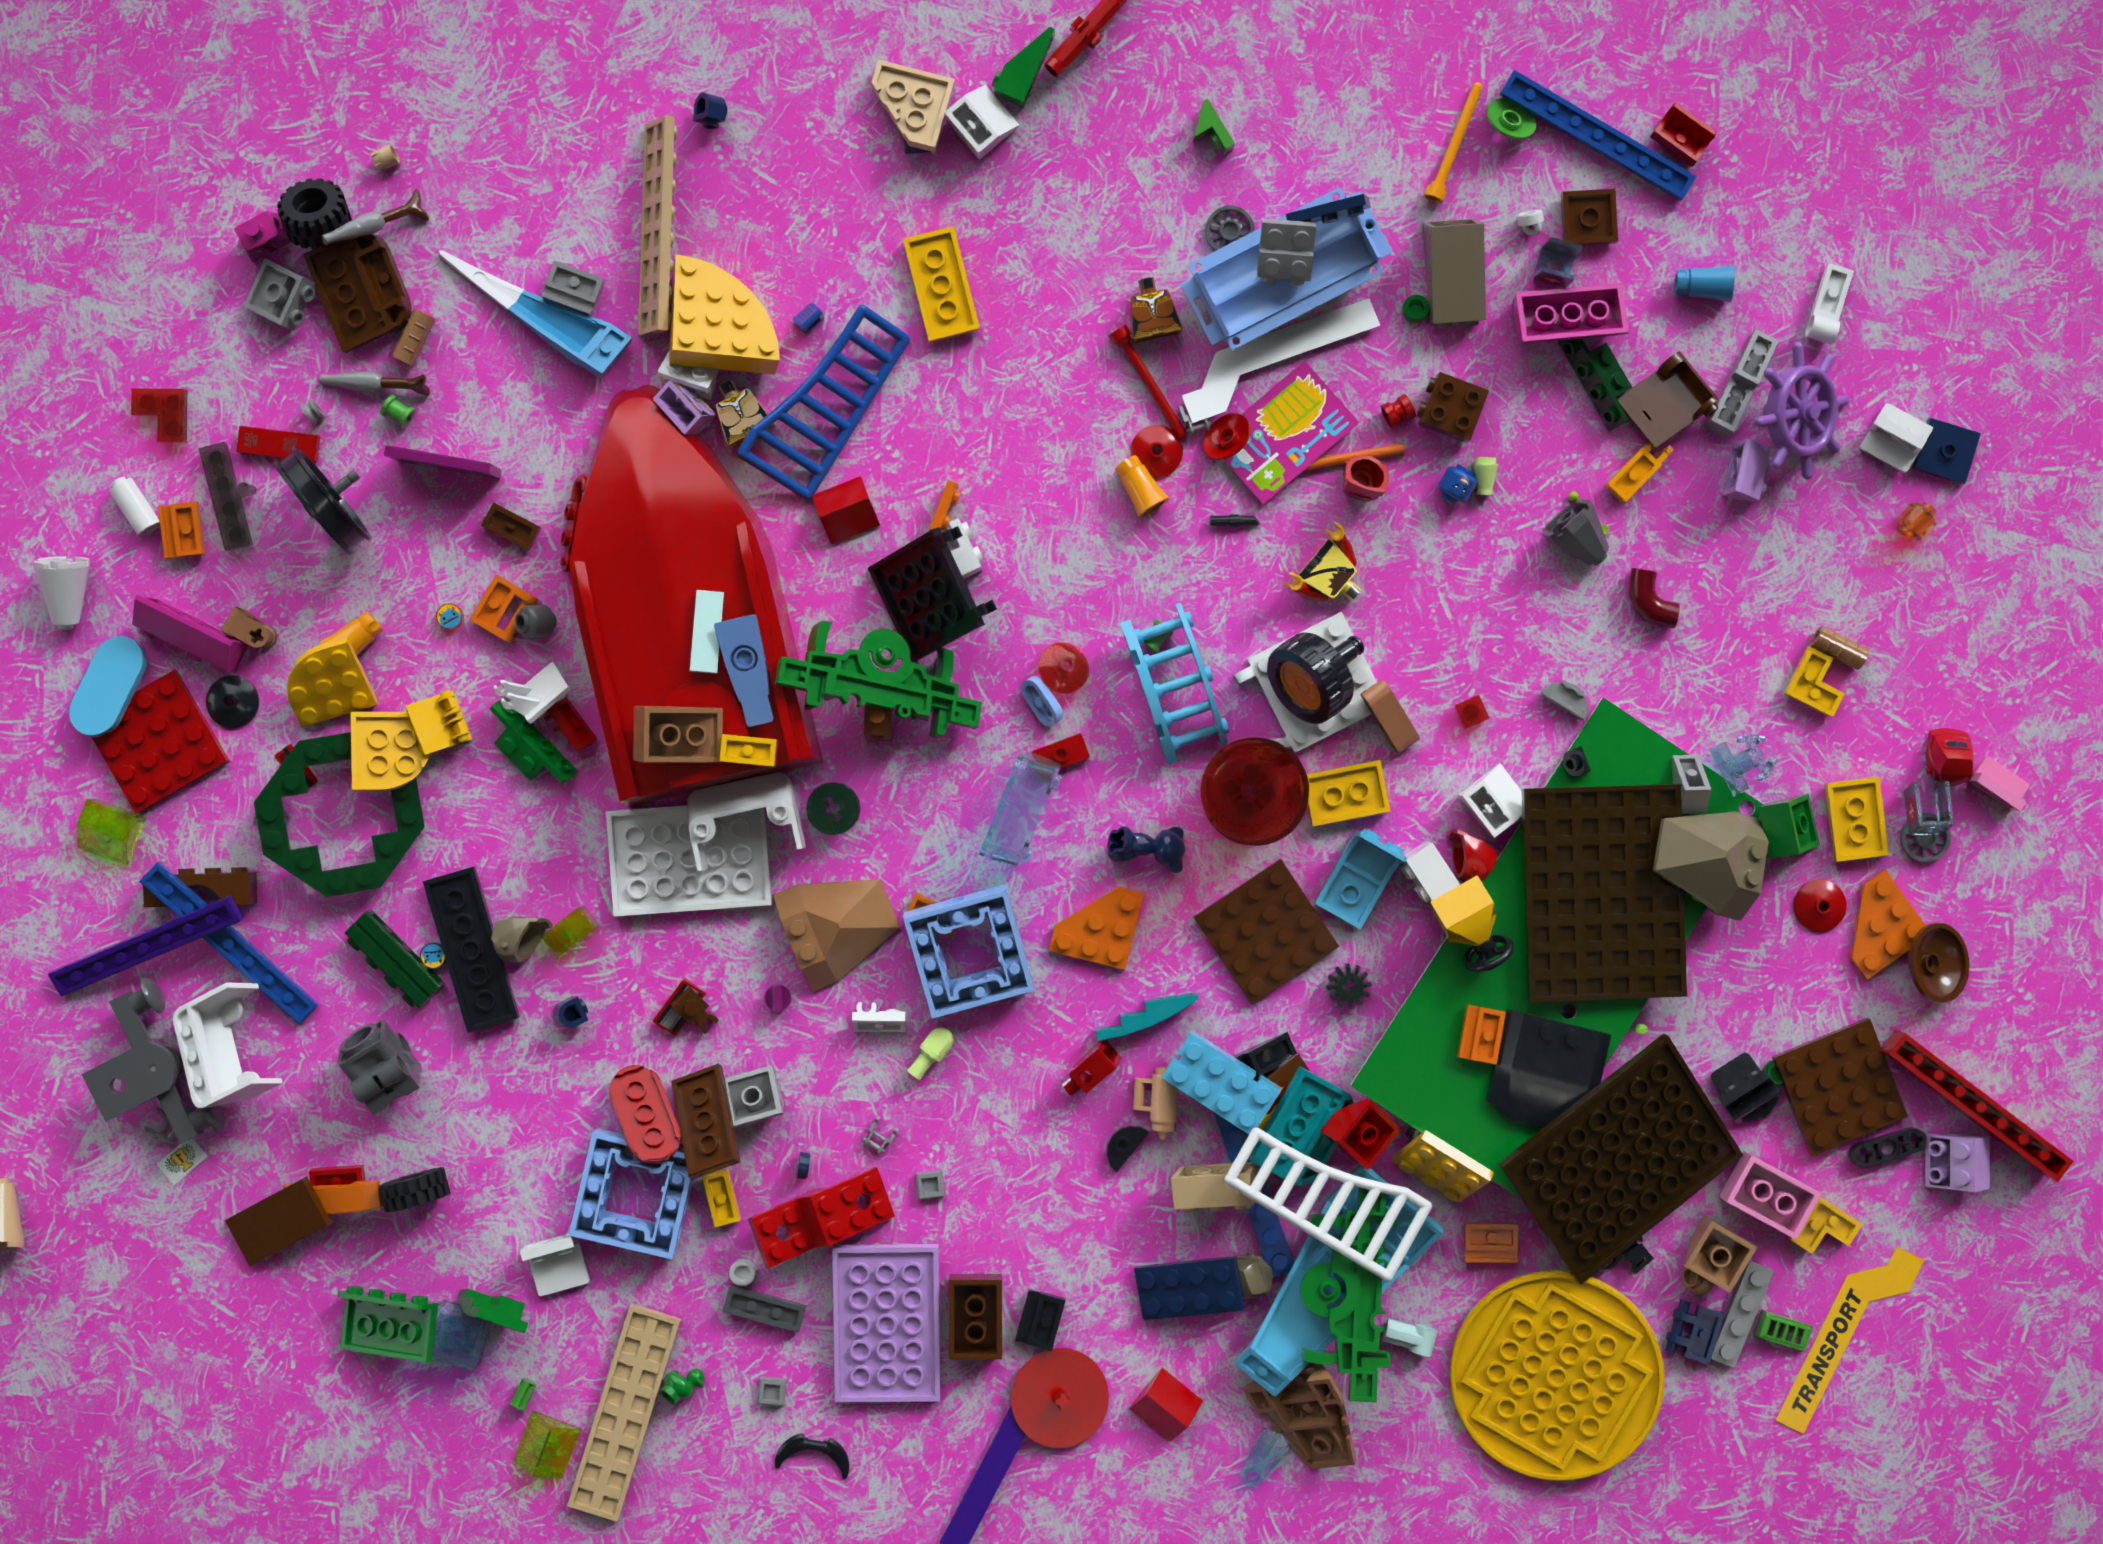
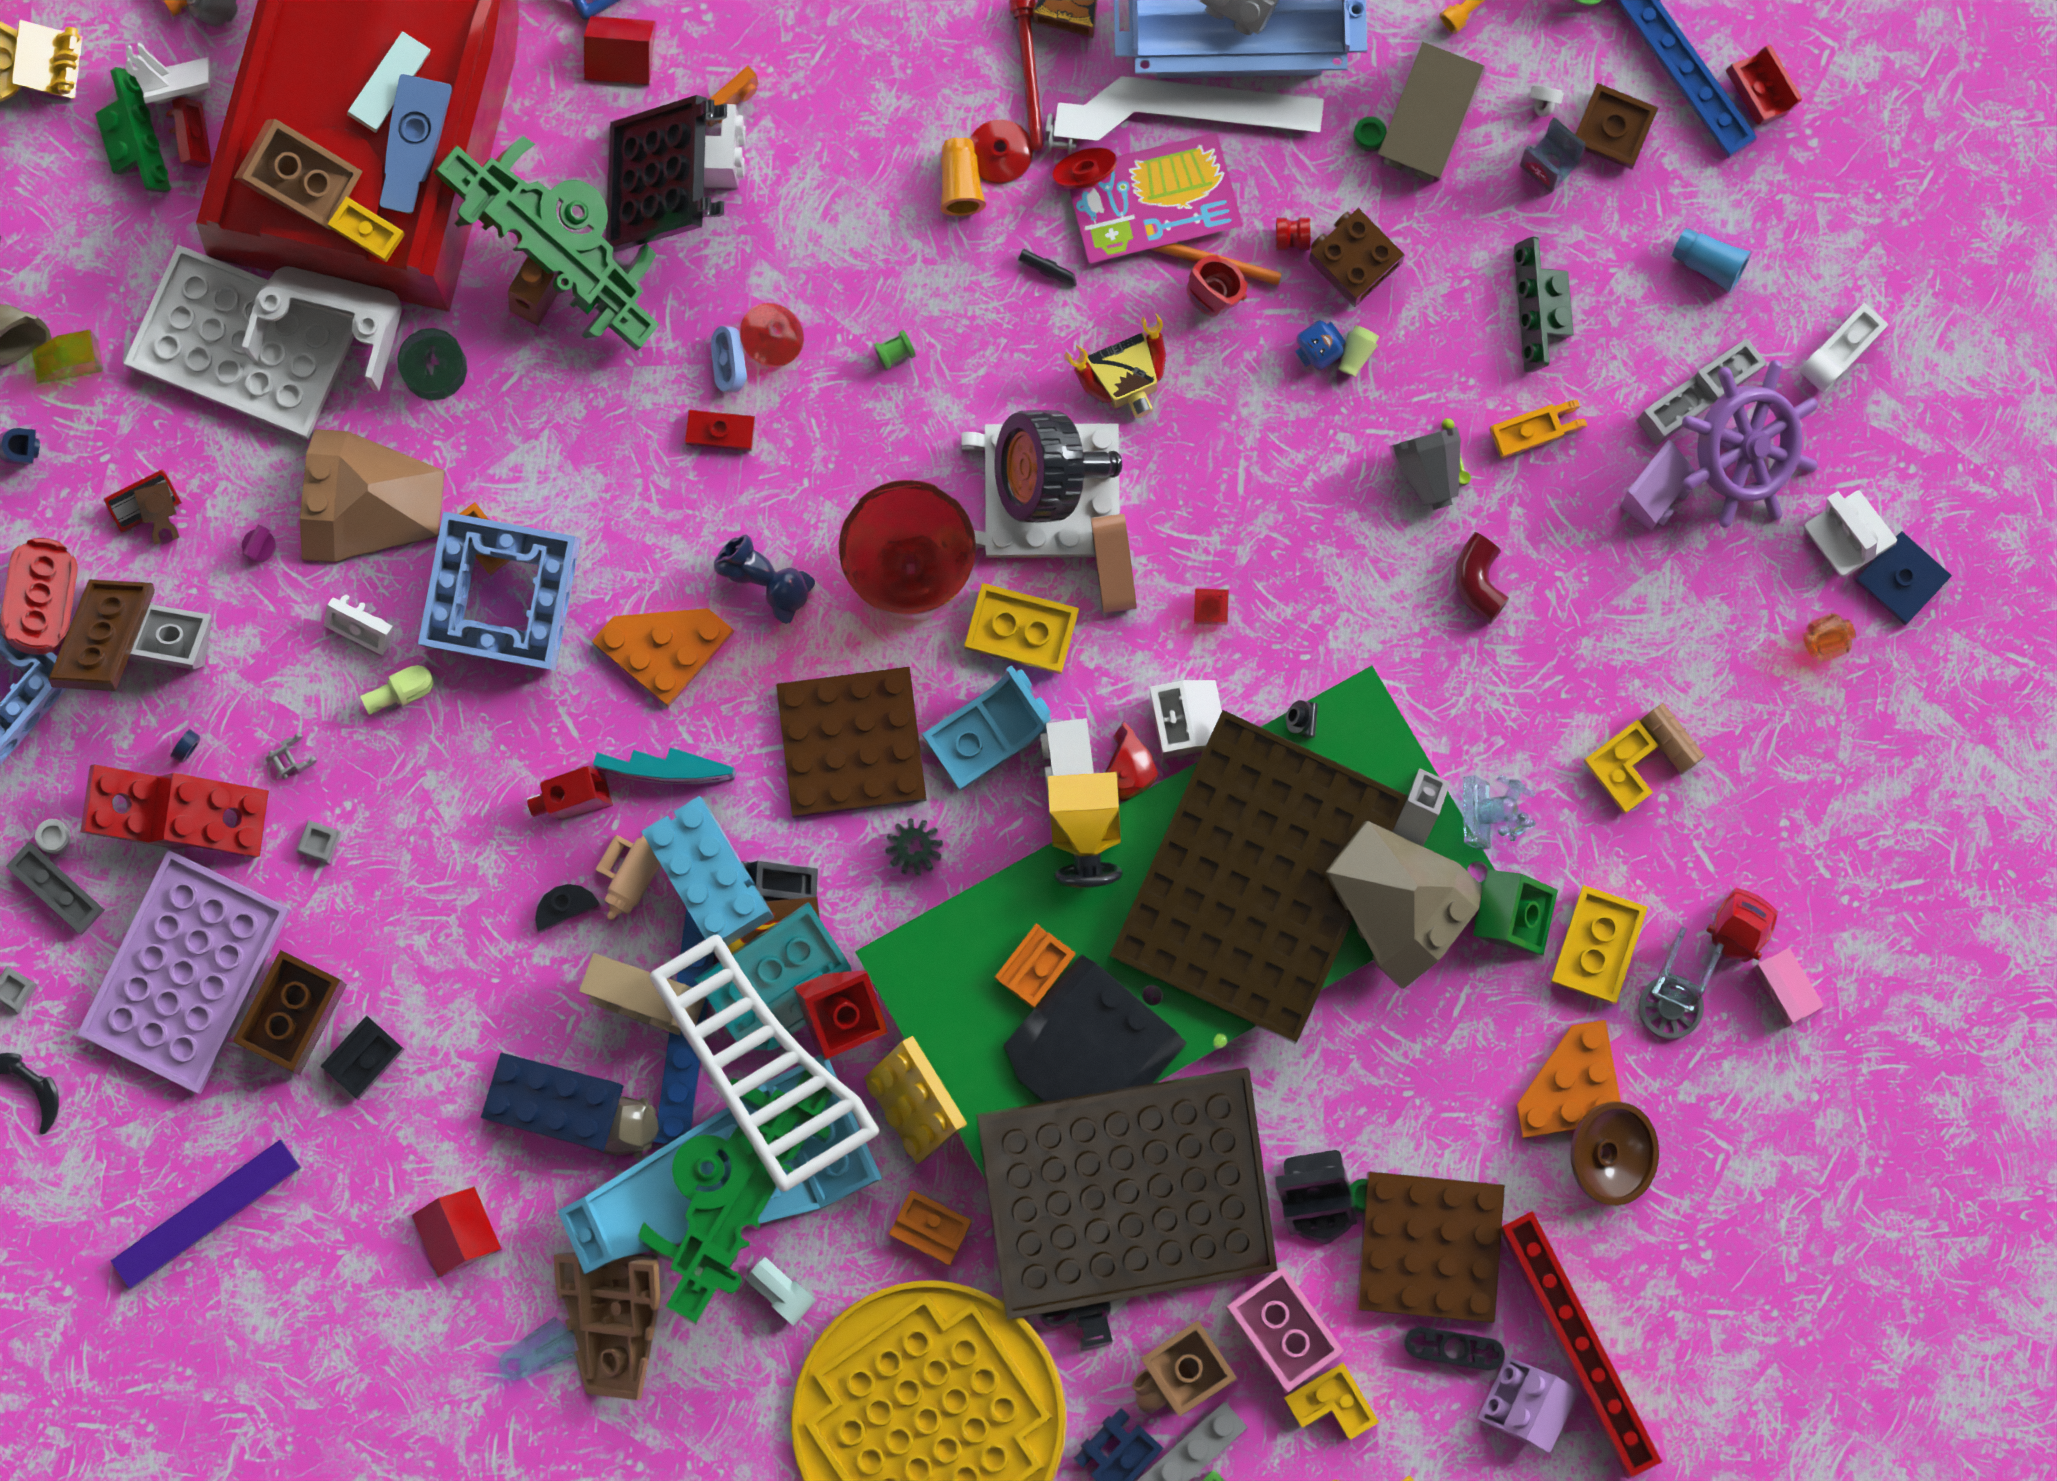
camera: 30 degrees right, 10 degrees down
(721, 1198) = (74, 738): yellow plate -> none
(1020, 809) = (635, 453): clear light blue windscreen -> none
(1077, 1402) = (350, 1141): red piece -> none
(1154, 692) = (858, 401): medium azure fence -> none
(1567, 697) = (1329, 643): light grey plate -> none
(1570, 313) = (1538, 212): dark pink slope -> none
(1670, 399) = (1608, 367): reddish brown door -> none
(1807, 905) = (1501, 1042): red dish -> none

